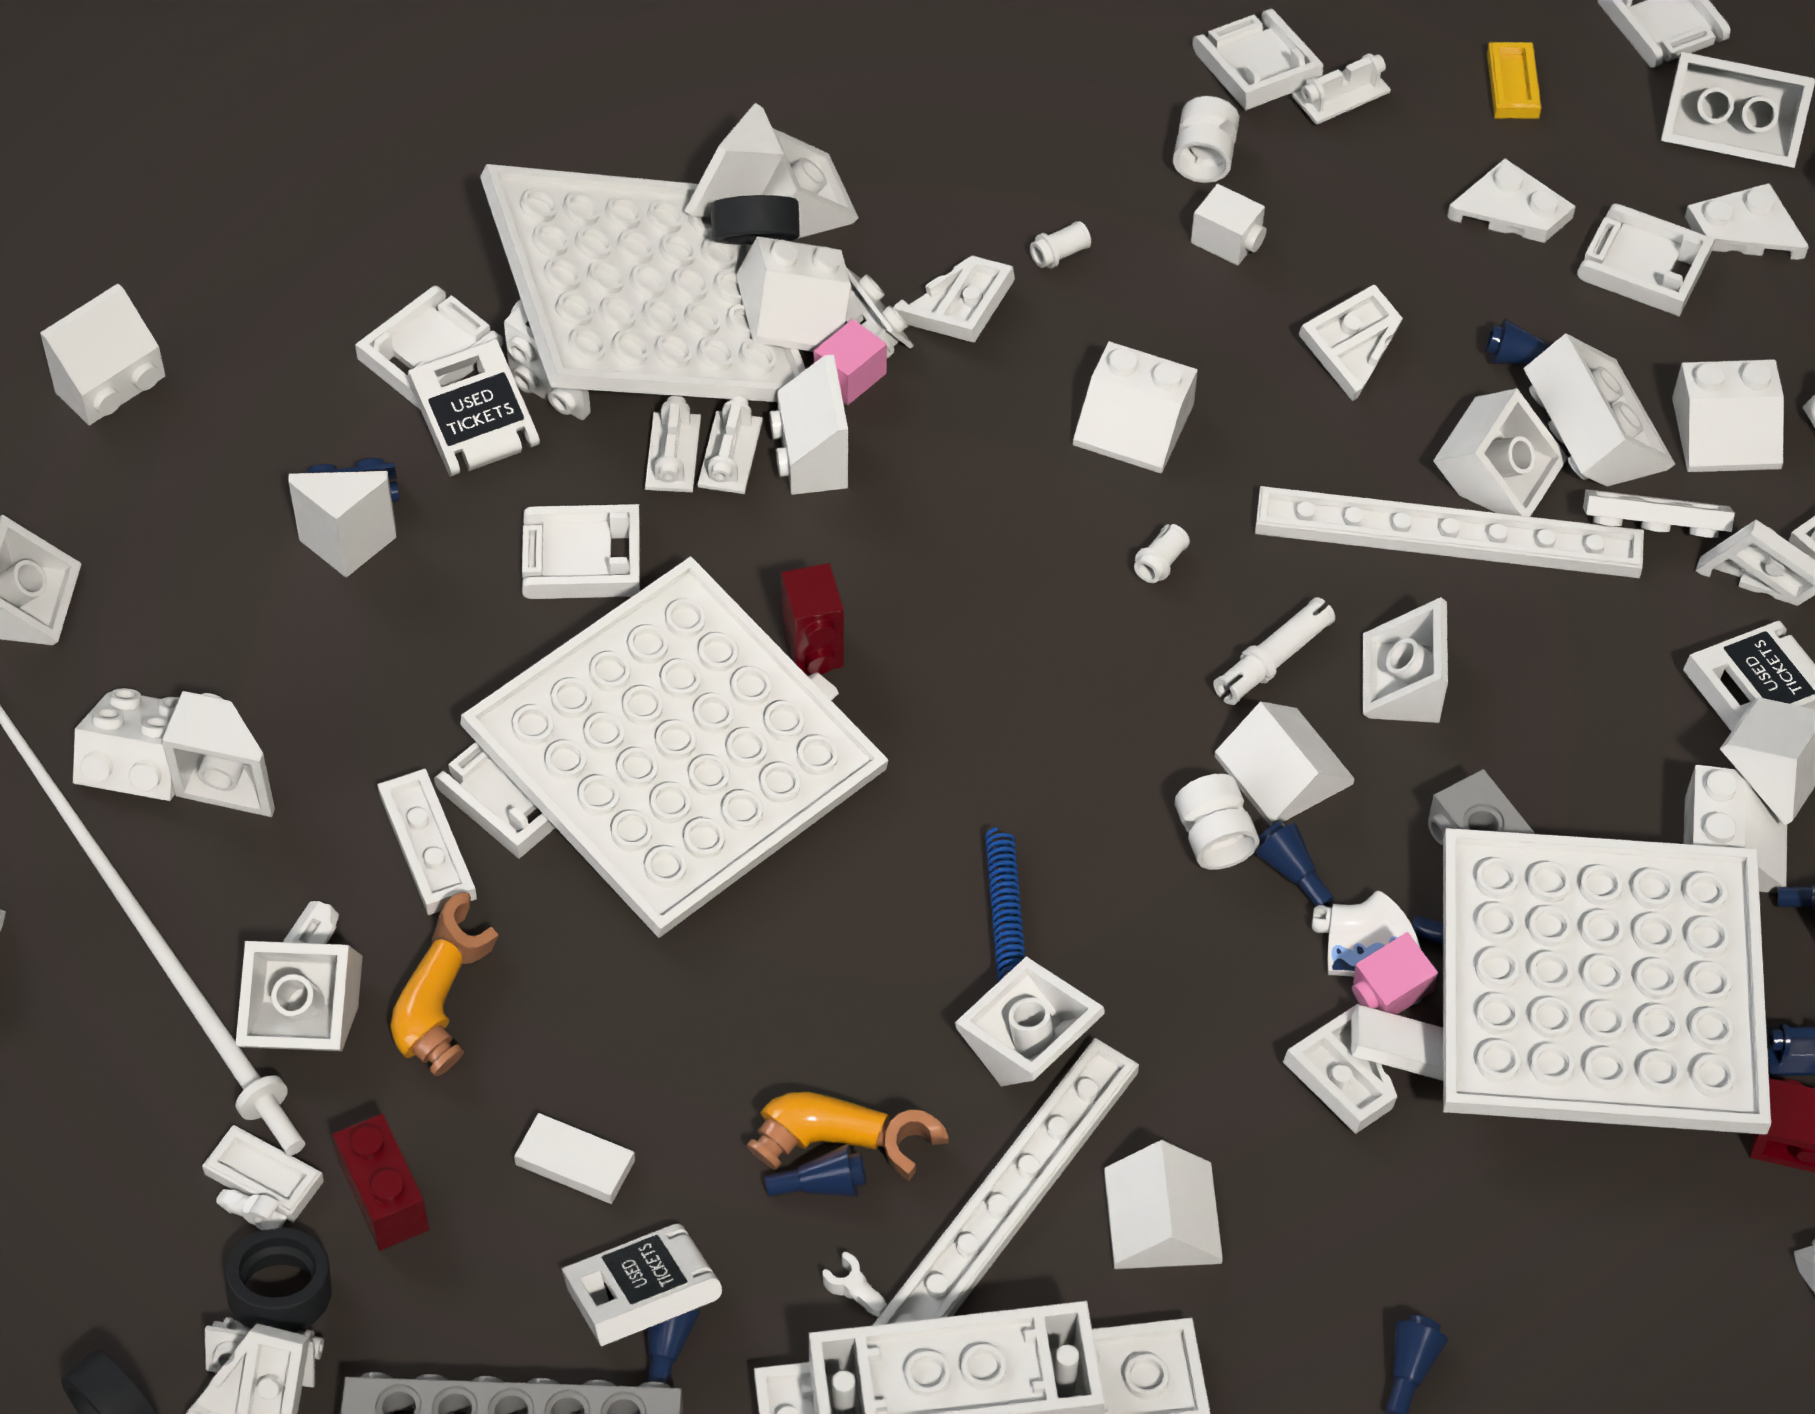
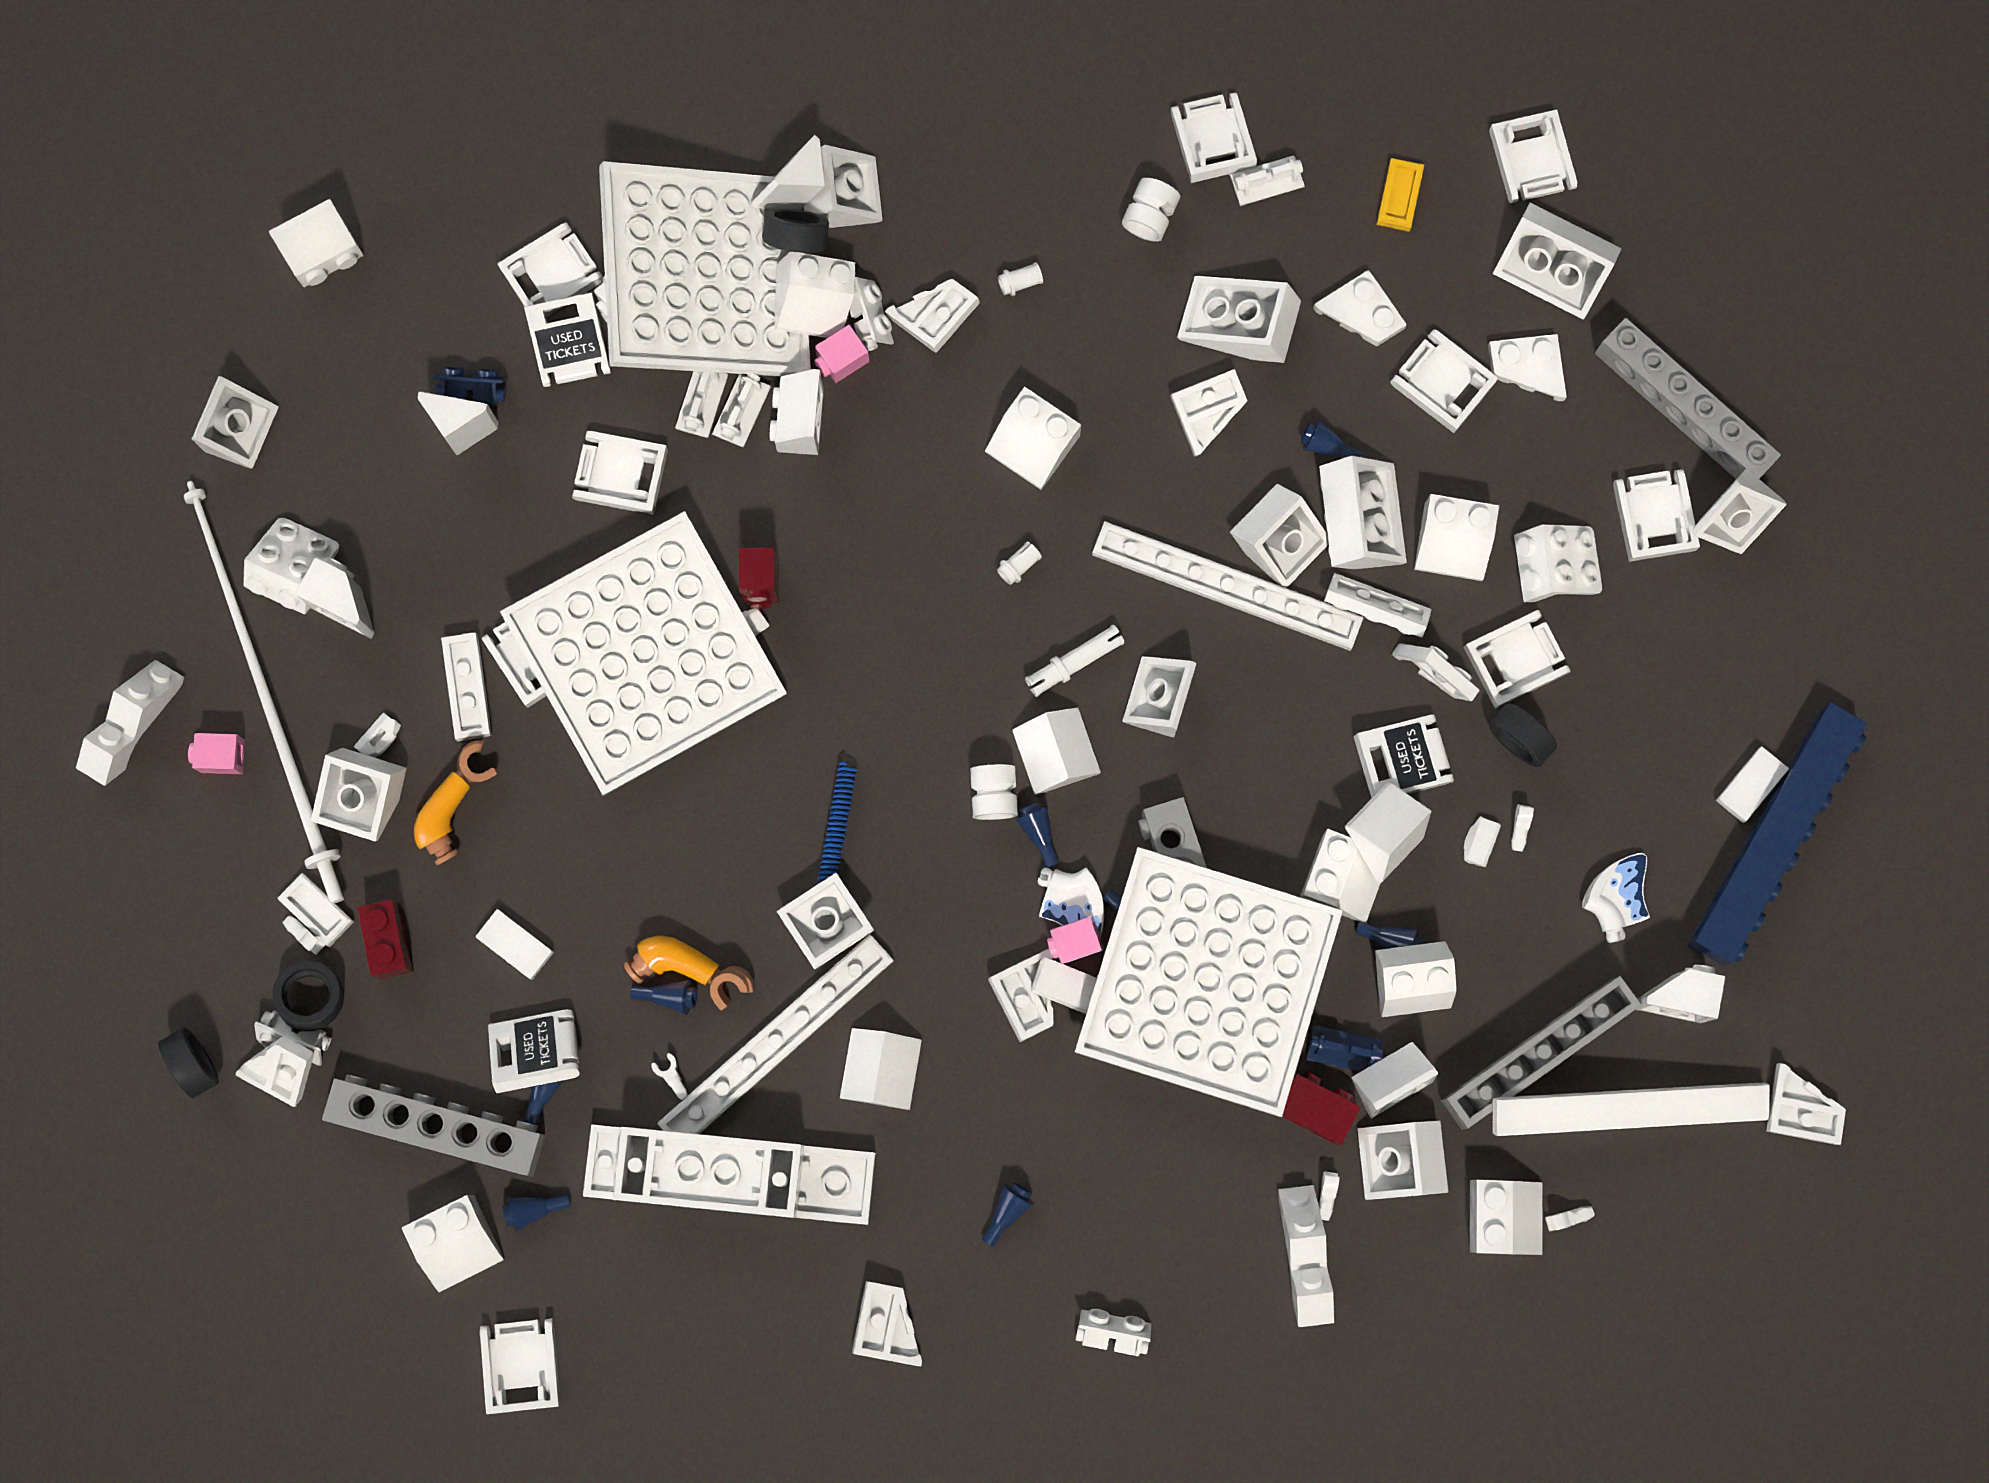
camera: 15 degrees right, 25 degrees up
(75, 992) = (217, 753): none -> bright pink brick
(1228, 225) = (1146, 289): white brick -> none
(1362, 232) = (1241, 317): none -> white slope

